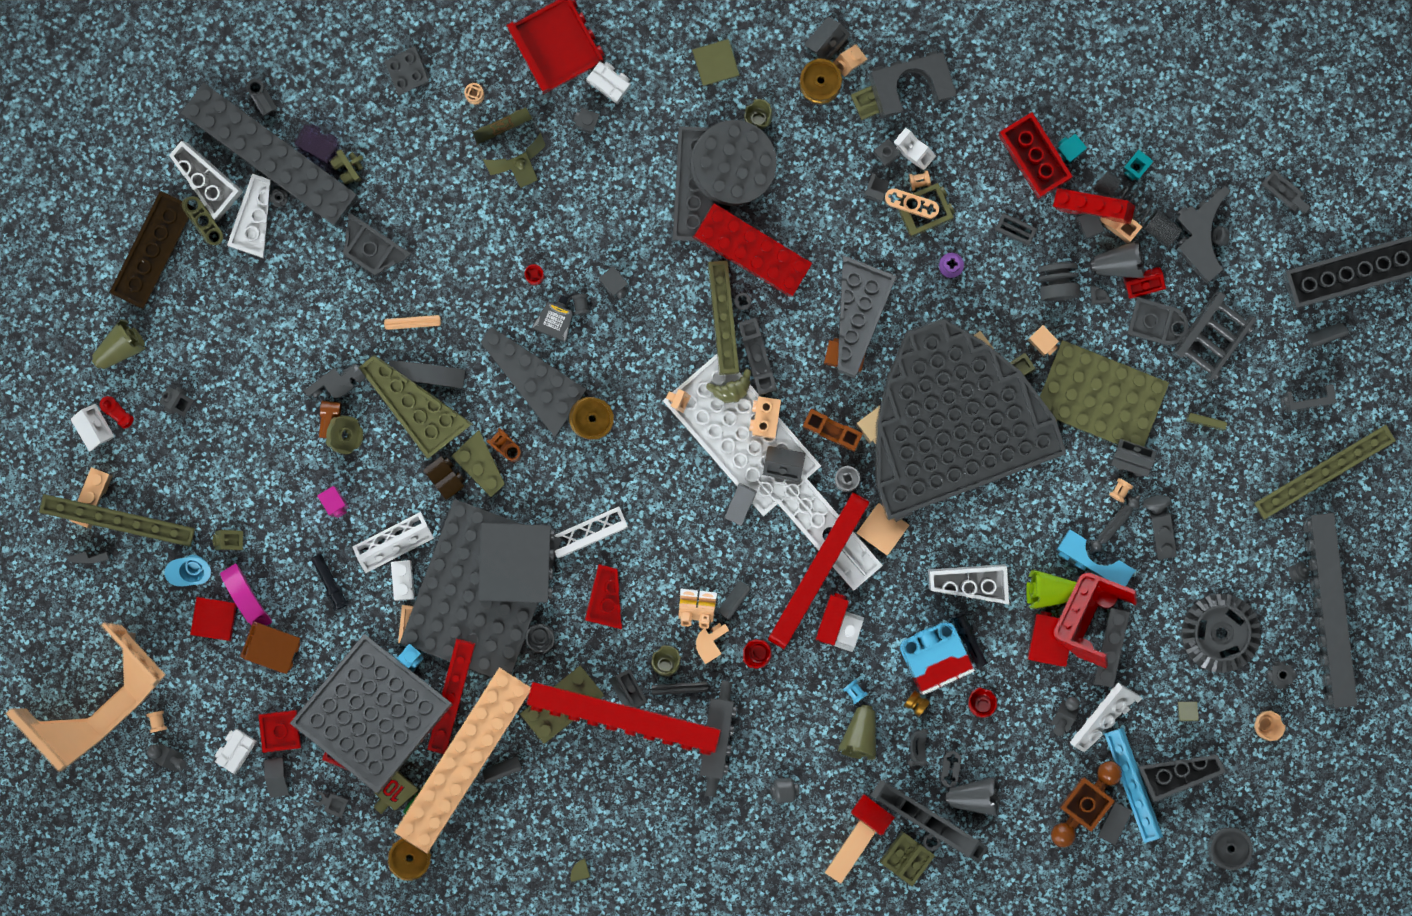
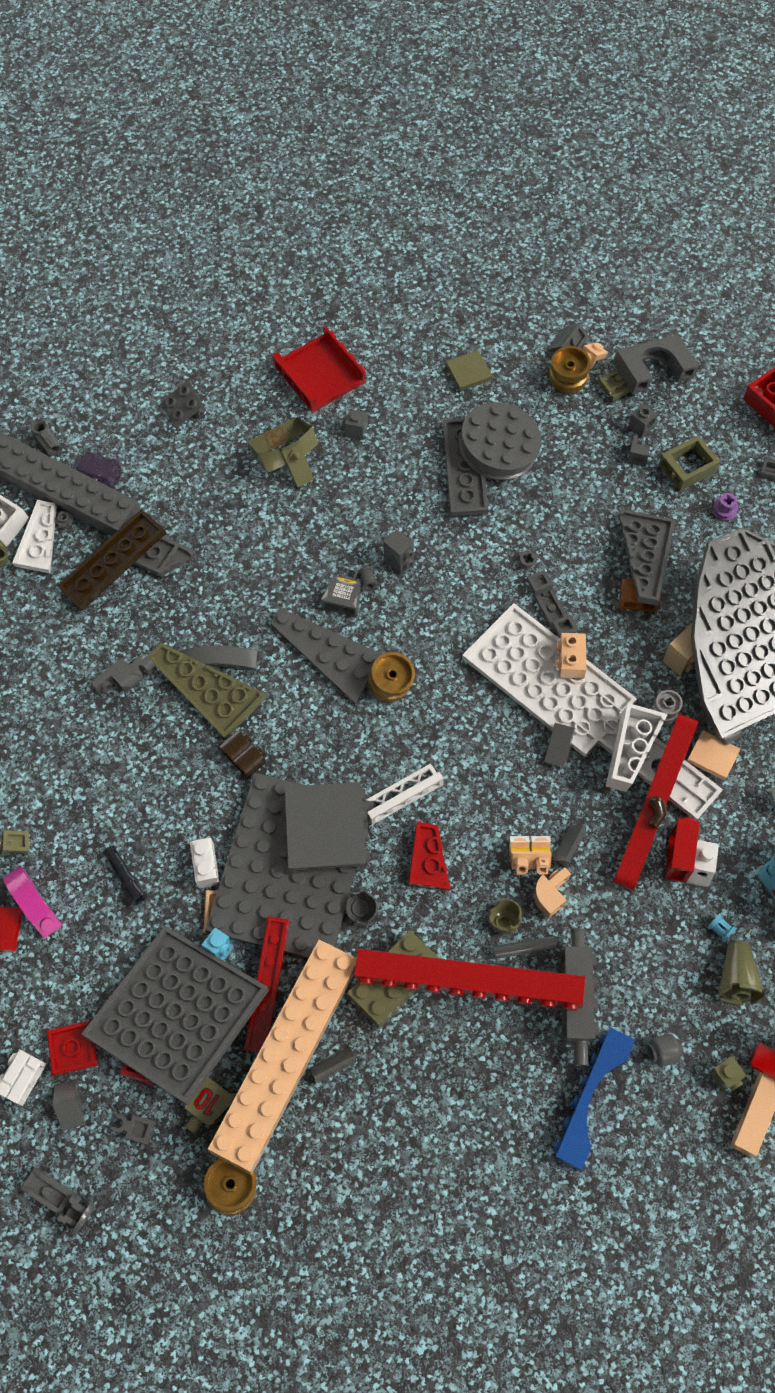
camera: 10 degrees left, 20 degrees down
(267, 852) = (58, 1199): none -> dark grey piece
(270, 647) = (59, 951): dark orange brick -> none
(327, 255) = (112, 559): none -> dark brown plate
(328, 411) = (119, 707): dark orange piece -> none
(333, 502) = (125, 787): dark pink brick -> none
(335, 430) = (124, 724): olive plate -> none
(341, 160) = (132, 484): olive hips -> none
(394, 545) = (192, 827): white fence -> none
(412, 322) = (200, 613): light nougat axle -> none
(472, 96) = (247, 414): light nougat wheel -> none
(479, 464) = (279, 739): olive wing -> none
(502, 443) = (302, 714): dark orange piece -> none
(534, 271) = (318, 556): red wheel -> none
(580, 871) = (438, 1179): olive tile -> none
(609, 82) = (372, 393): white brick -> none
(628, 689) = (463, 949): dark grey slope -> none
(679, 400) = (479, 649): light nougat tile -> none
(696, 856) = (575, 1143): none -> blue arch
(723, 317) = (512, 573): olive plate -> none
(733, 390) = (532, 636): olive piece -> none
(752, 250) = (530, 510): red brick -> none
(757, 654) = (605, 898): red hair -> none
(759, 113) = (518, 397): olive hair -> none
(783, 463) = (599, 699): dark grey panel -> none
(806, 515) = (633, 742): none -> white wedge
(816, 583) = (659, 811): none -> dark brown arm
(832, 431) = (654, 668): dark orange arch -> none
(833, 816) = (728, 1074): none -> olive brick
(913, 149) = (669, 416): white brick -> none
(914, 184) = (678, 439): light nougat bush -> none
(923, 213) = (692, 449): light nougat beam -> none

